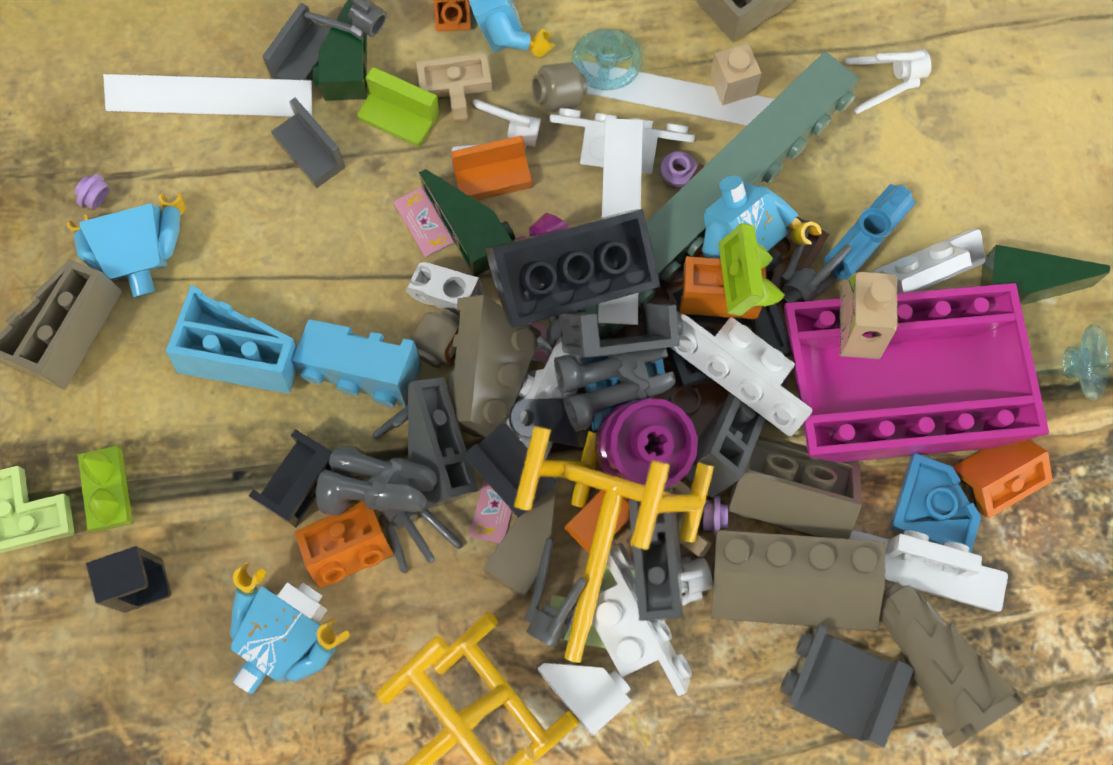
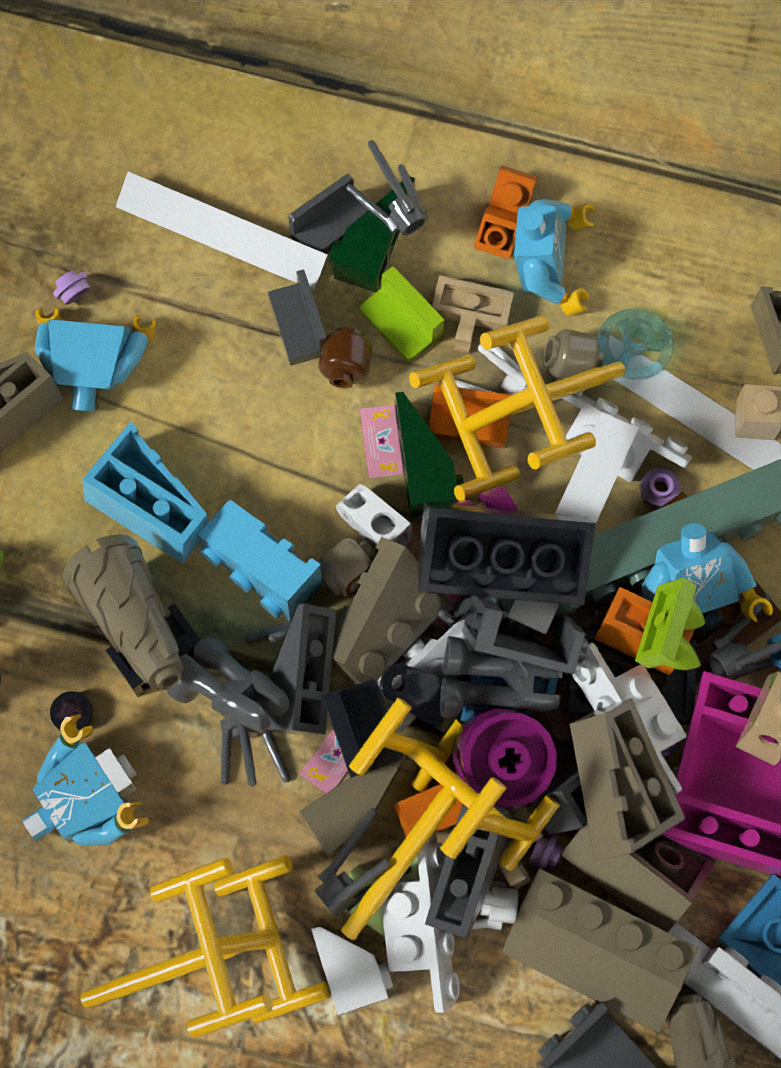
camera: 20 degrees right, 0 degrees up
(235, 557) = (70, 704): none -> black tile
(244, 444) = (121, 598): none -> dark tan cone
(342, 544) = (175, 733): orange bracket -> none
(362, 160) = (345, 357): none -> reddish brown head
(540, 125) = (535, 395): none -> yellow piece
(759, 423) = (621, 781): none -> dark tan wedge

